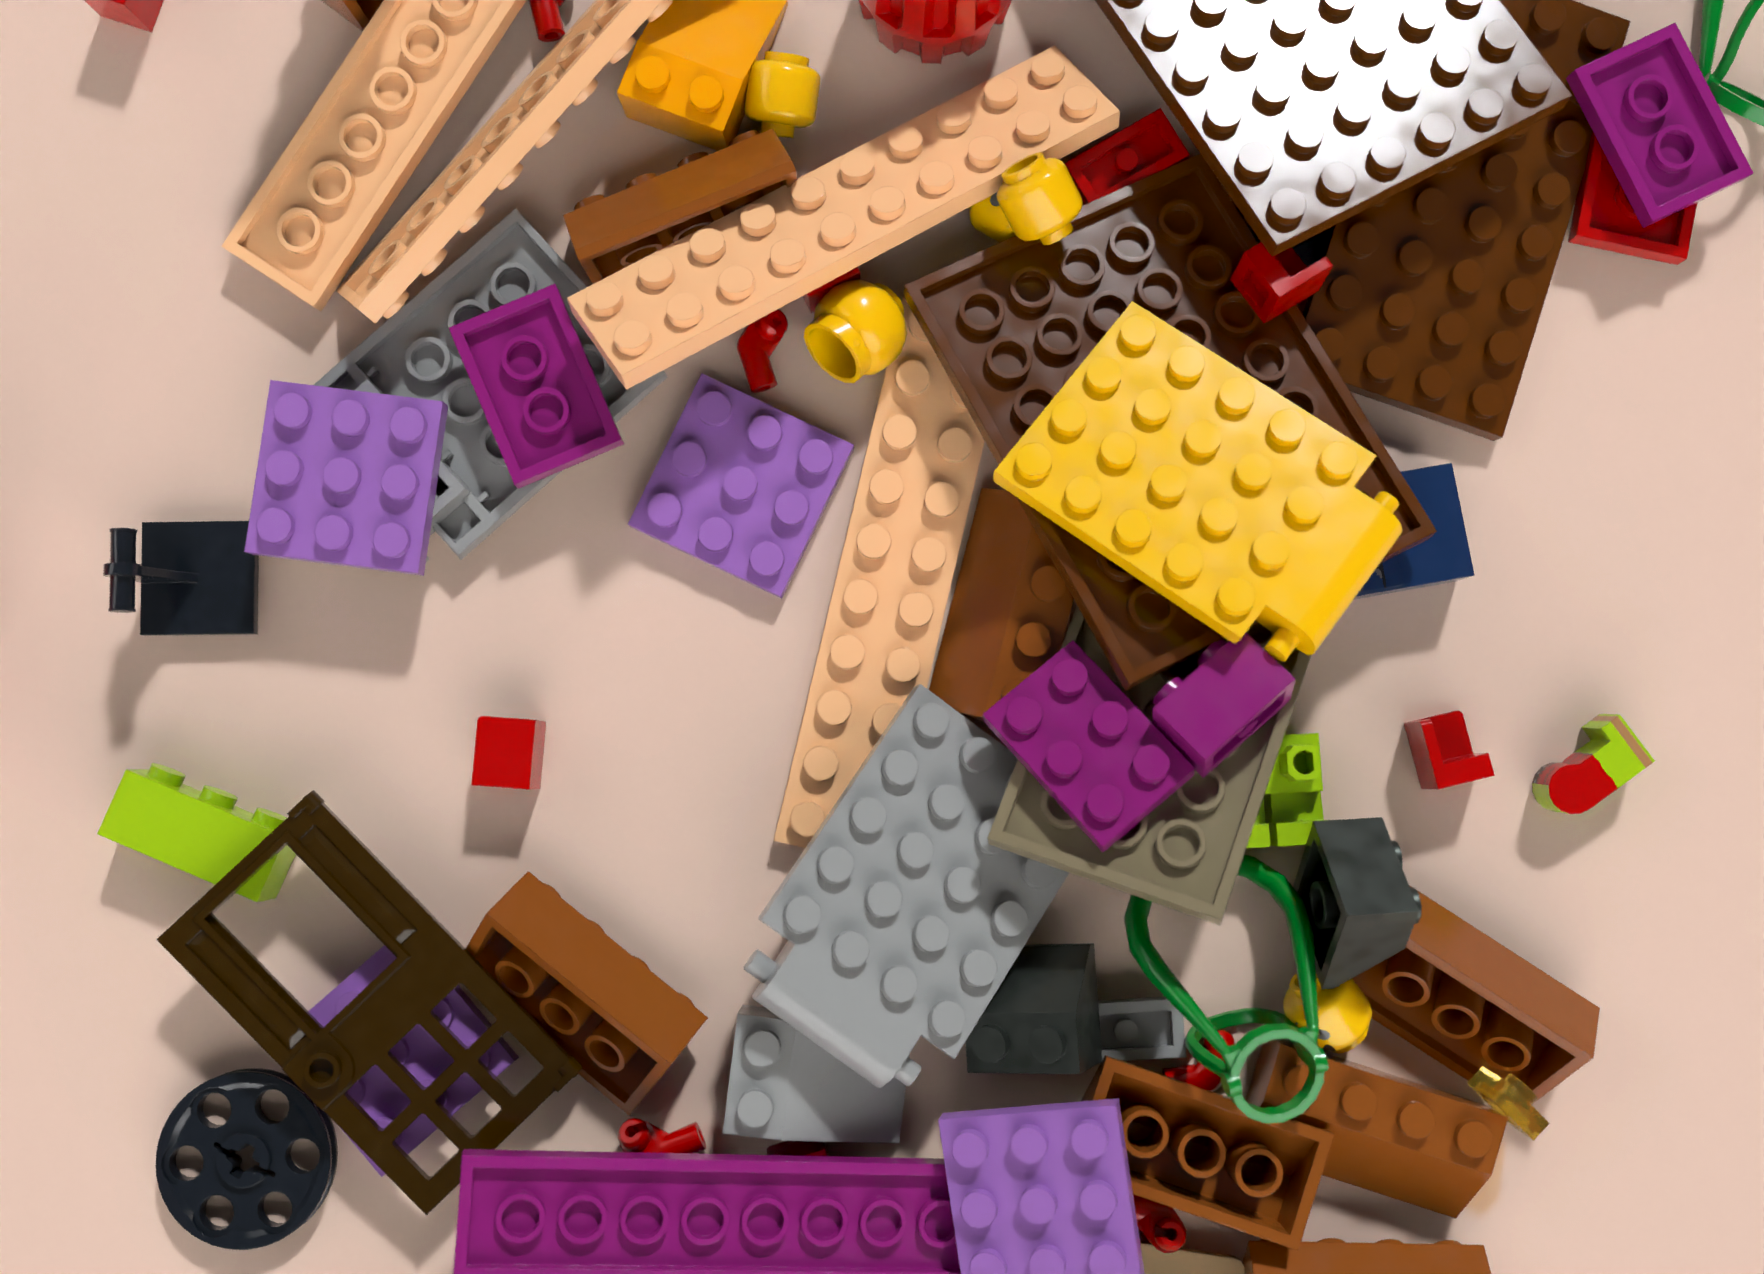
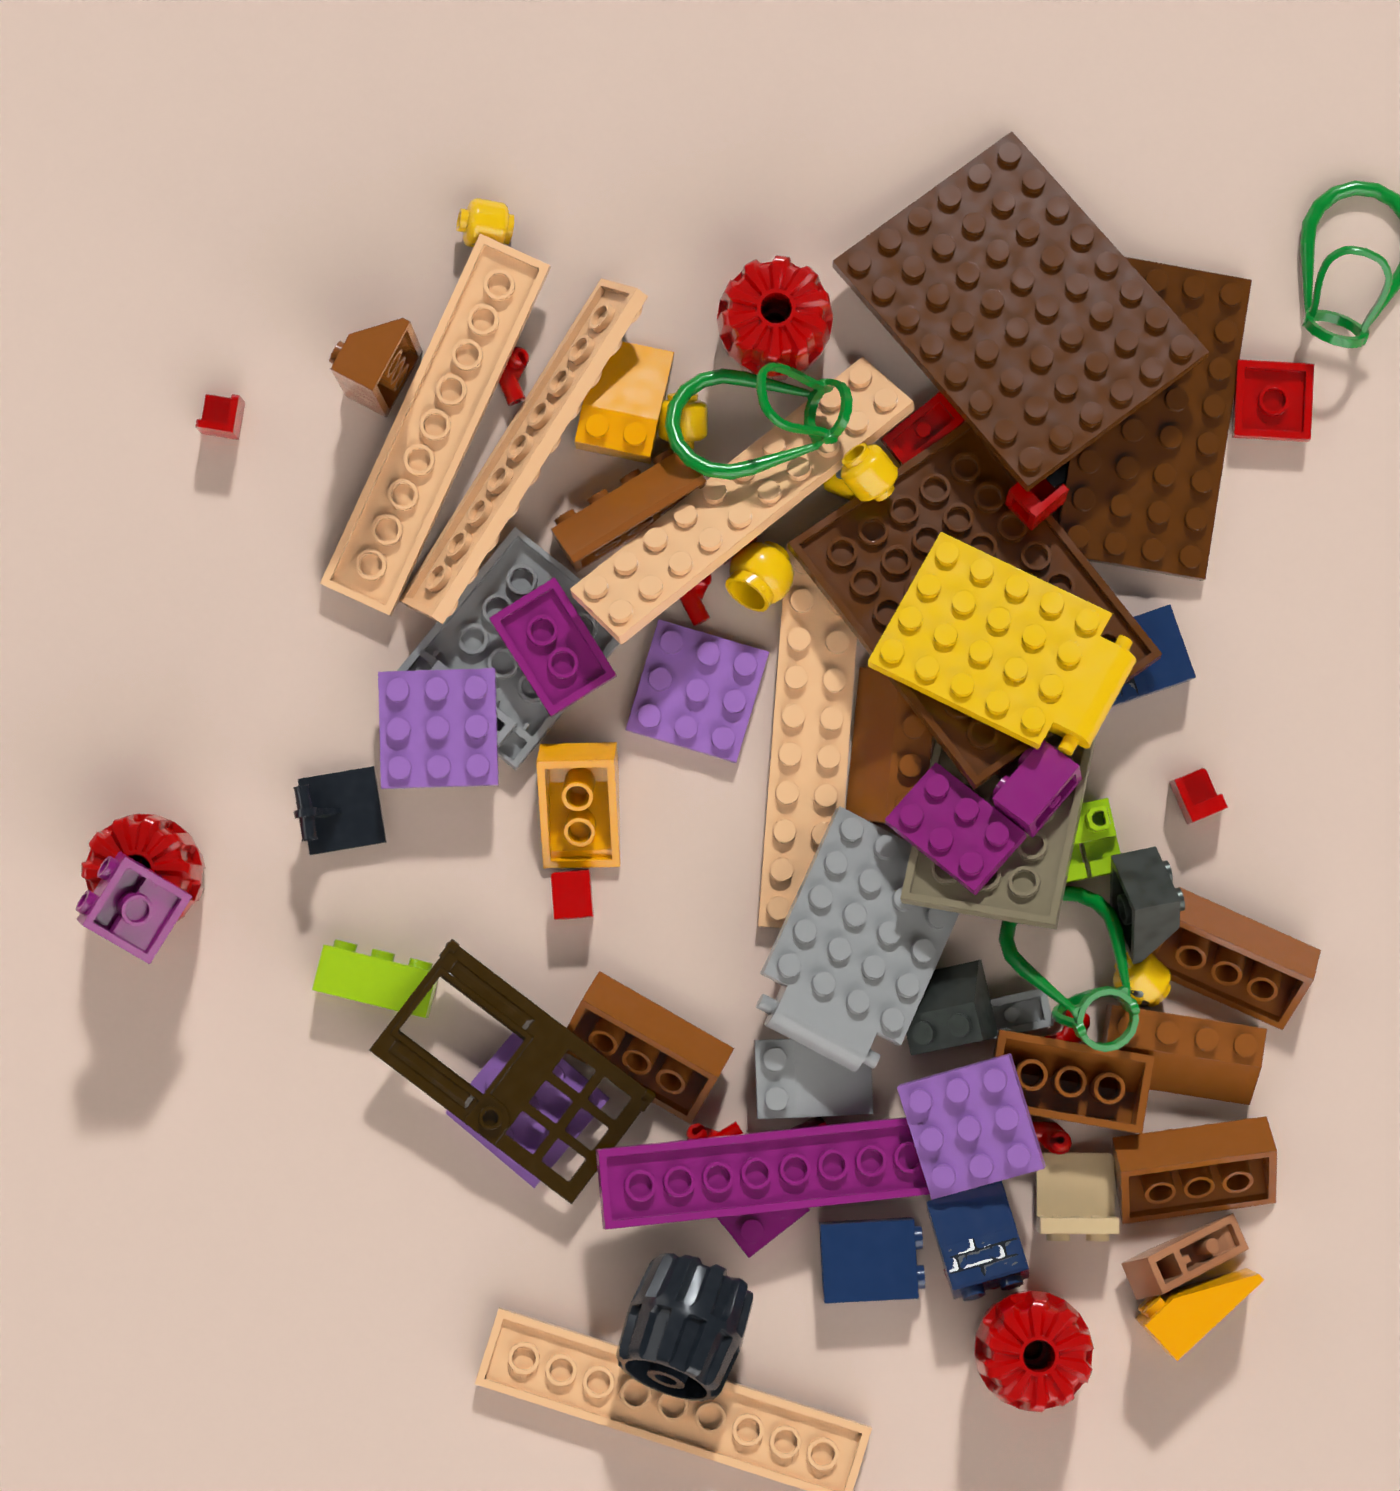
camera: 10 degrees left, 0 degrees up
(221, 1169) = (426, 1206): black wedge -> none
(541, 621) = (579, 804): none -> light orange slope
(901, 54) = (742, 378): none -> green animal
(1511, 1099) = (1269, 1017): clear yellow plate -> none
(1594, 769) = (1297, 795): leg -> none
(1659, 125) = (1276, 354): magenta plate -> none

